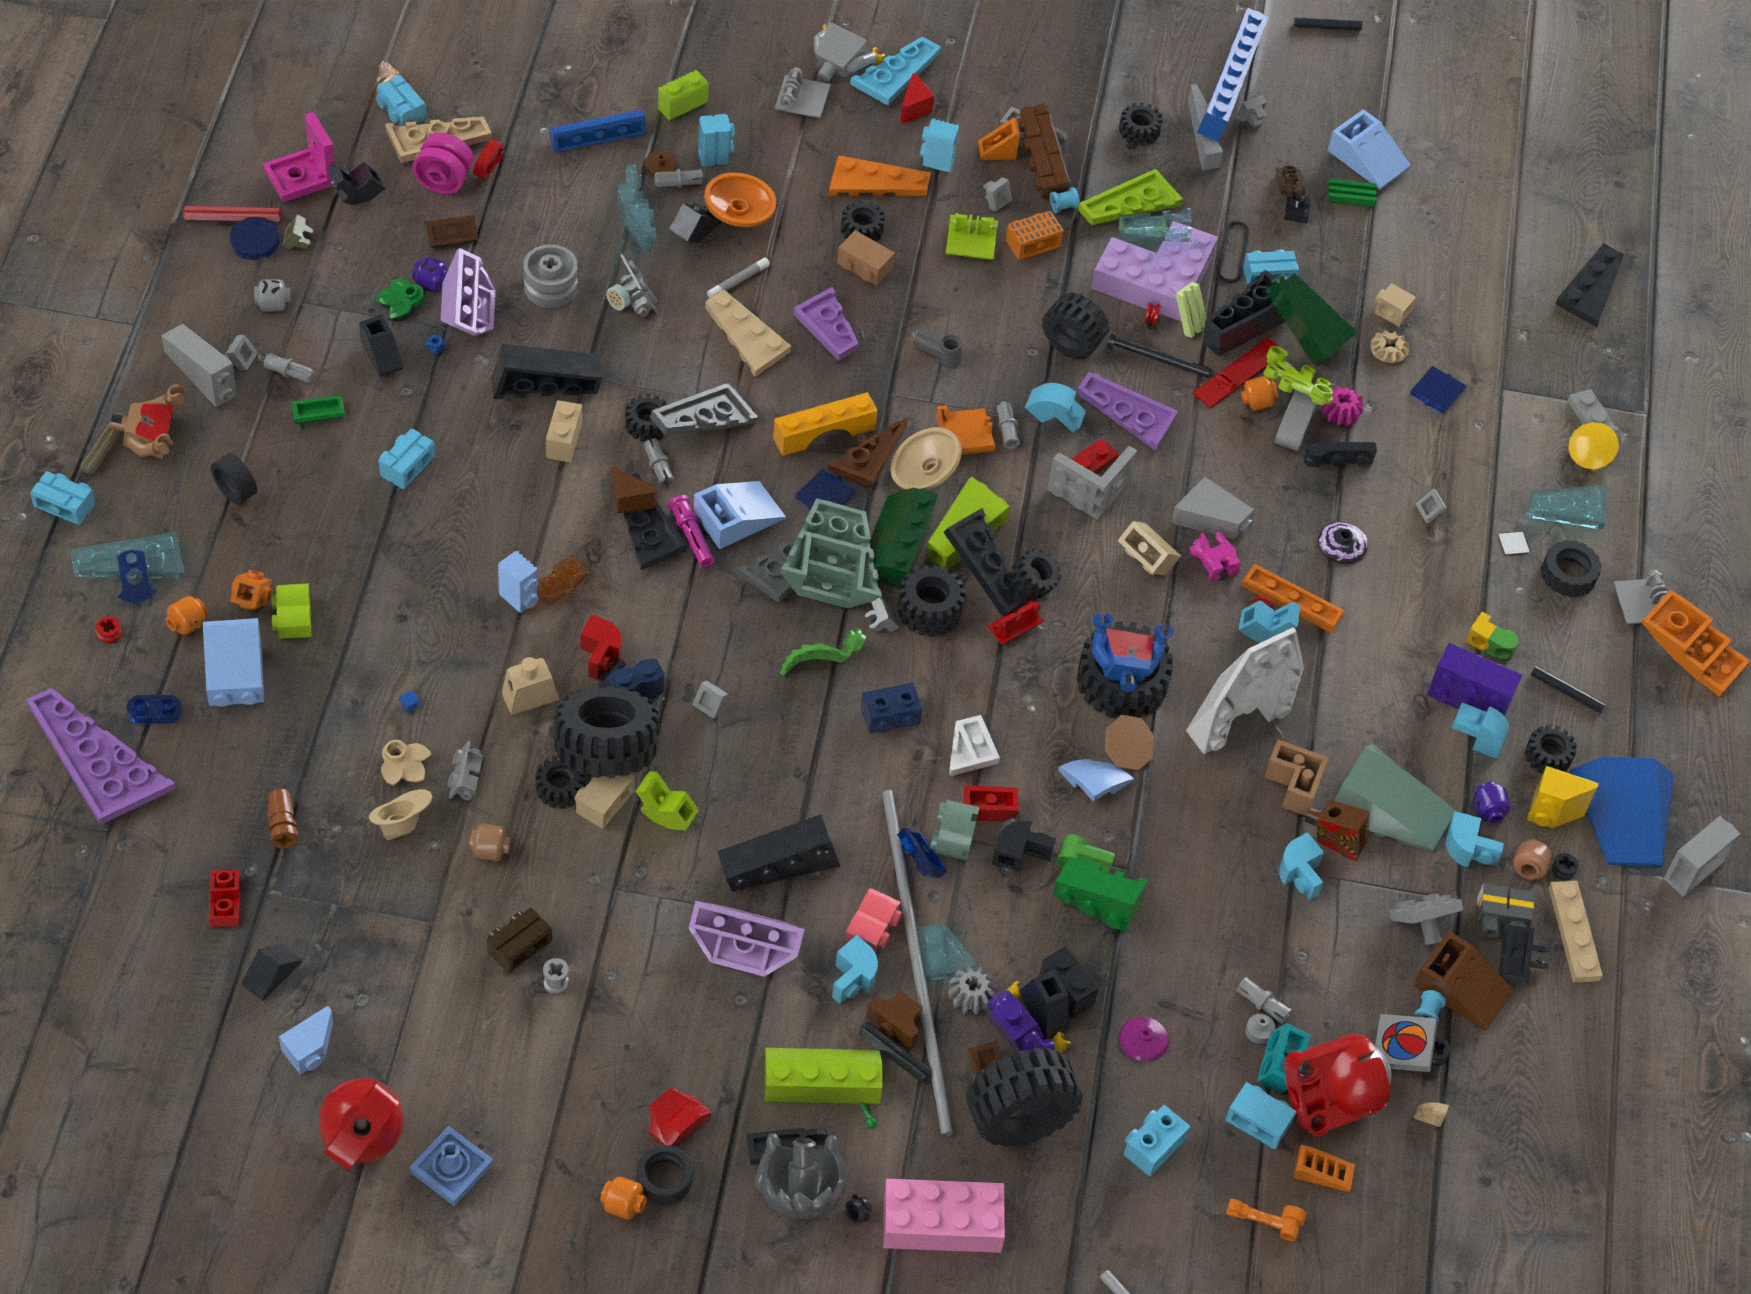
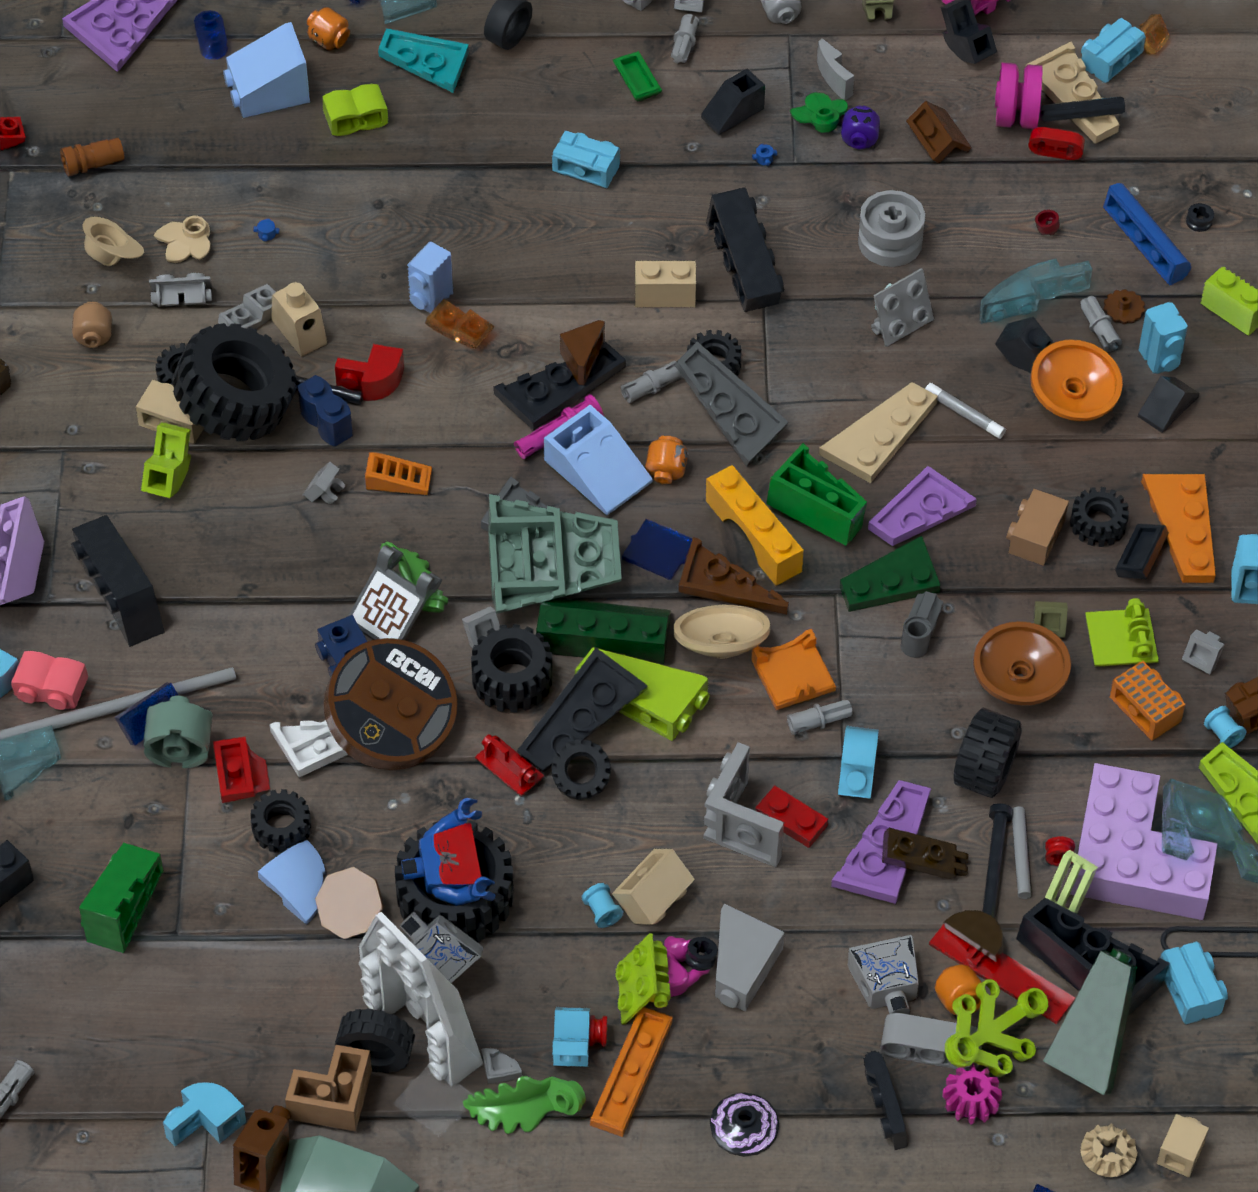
camera: 85 degrees right, 0 degrees up
(245, 549) = (425, 56): none -> teal wing
(245, 595) = (367, 65): orange brick -> none
(356, 279) = (833, 72): none -> light grey slope
(467, 123) = (1082, 109): none -> black axle
(468, 295) = (829, 164): lavender wedge -> none
(502, 724) = (253, 311): none -> light grey slope
(571, 181) = (1042, 222): none -> dark red hinge
(587, 102) = (1199, 224): none -> black bush
(708, 664) = (399, 466): none -> orange slope
(745, 465) = (666, 459): none -> orange head
(764, 159) = (1167, 402): none -> black slope
(811, 379) = (816, 498): none -> green wedge
(852, 666) = (389, 600): none -> flag
(888, 355) = (891, 578): none -> dark green wing
(899, 207) = (1141, 551): none -> black tile
(949, 272) = (1051, 616): none -> olive tile
(955, 681) = (390, 704): none -> piece
(994, 292) = (1022, 650): none -> dark orange dish
(1018, 840) = (178, 803): black brick -> none
(1041, 792) = (280, 804): none -> black tyre
(1078, 848) = (176, 872): bright green piece -> none
(1145, 388) = (923, 854): none -> dark brown hinge
(1147, 338) = (1021, 853): none -> light grey bar
(1154, 586) = (602, 905): none -> medium azure bush
(1193, 681) = (443, 944): none -> light grey torso
(1213, 529) = (698, 961): none -> black bush
(1215, 370) = (978, 930): none -> dark brown tile
(1229, 571) = (643, 978): none -> lime hinge
(1240, 431) = (886, 973): none -> light grey torso
(1263, 738) = (382, 1034): none -> black tyre
(1317, 635) = (525, 1103): none -> bright green plant

